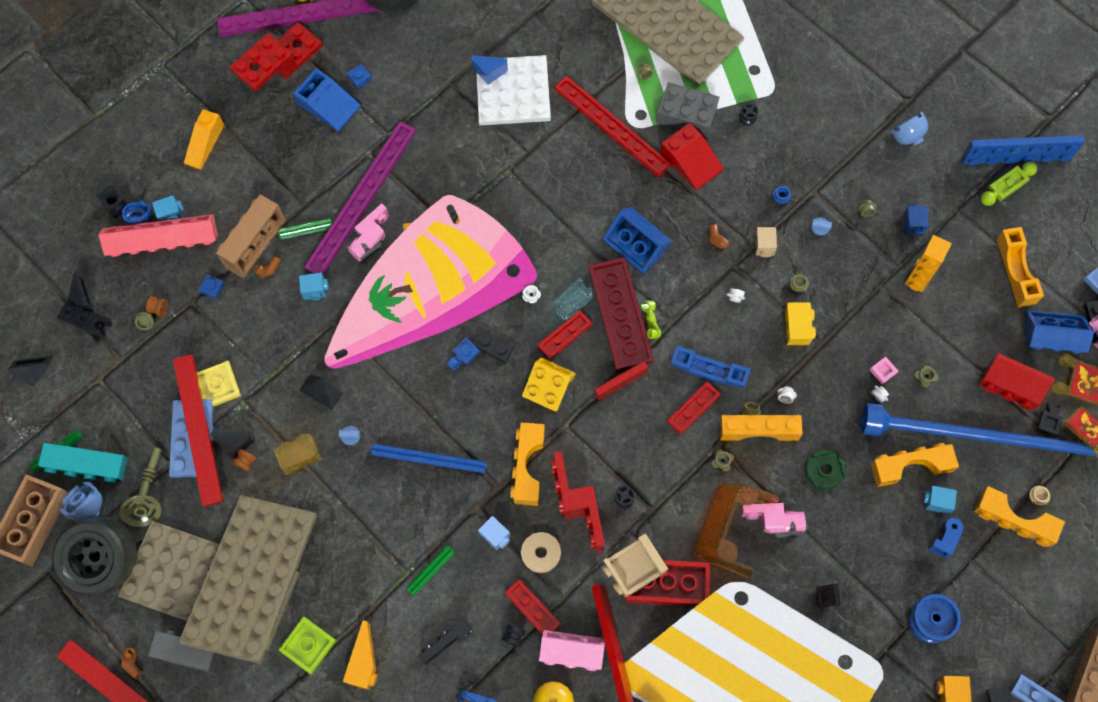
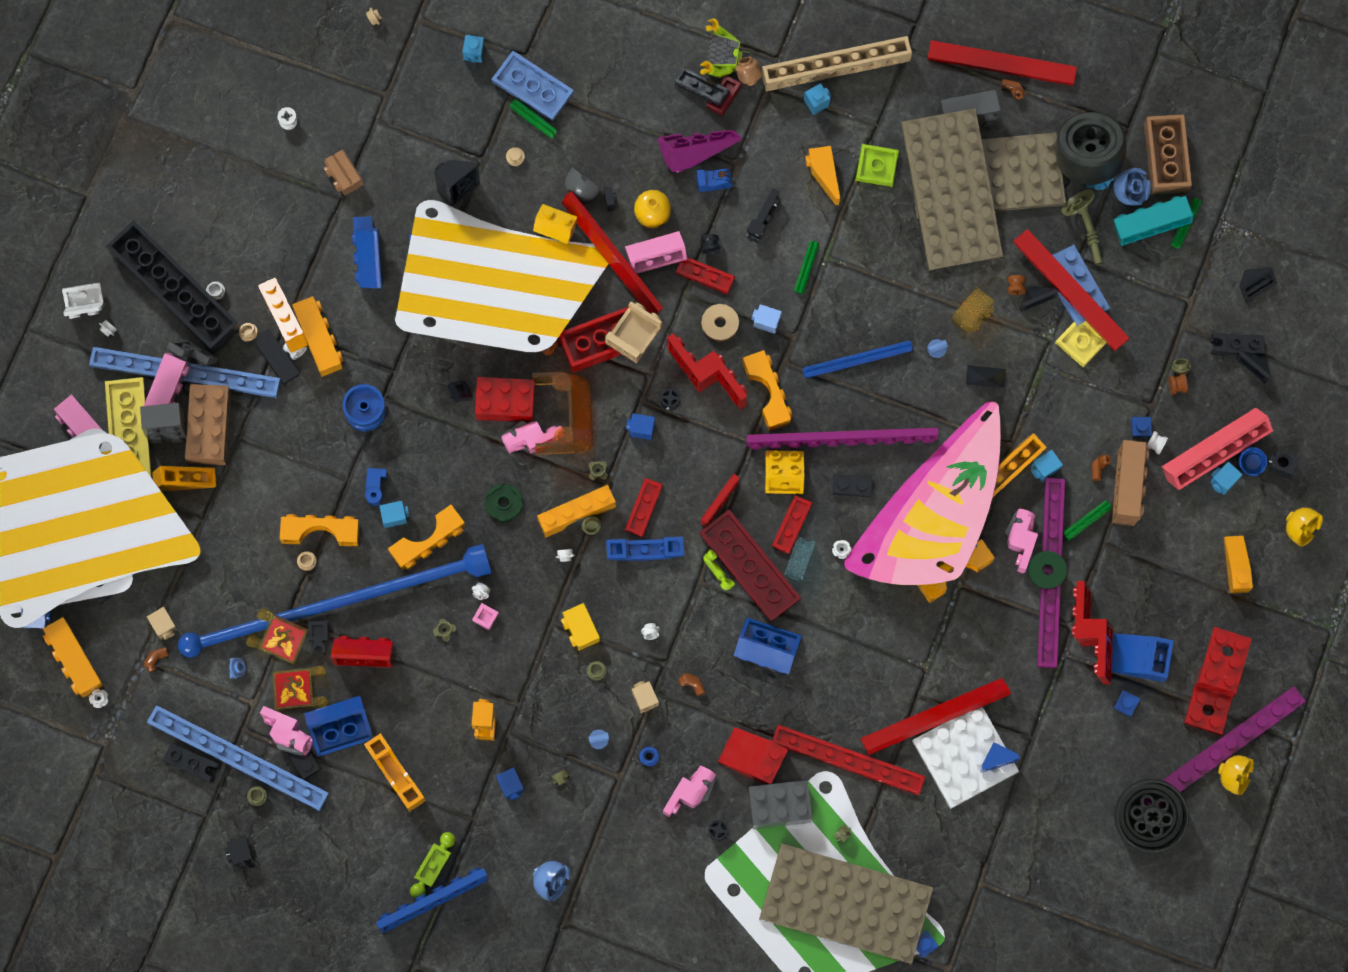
camera: 150 degrees right, 5 degrees up
(129, 144) = (1302, 524): none -> yellow cylinder
(206, 264) = (1156, 442): none -> white wheel
(333, 298) = (1017, 461): none -> light orange brick
(355, 128) = (1093, 632): none -> red bracket
(361, 187) = (1050, 559): none -> dark green tile
(465, 352) = (873, 464): blue plate -> none
(486, 391) = (851, 438): none -> magenta plate
(522, 126) = (935, 716): none -> red tile
(664, 482) = (641, 426): none -> blue brick
(759, 151) = (691, 791): none -> bright pink plate
(787, 566) = (504, 399): none -> red brick

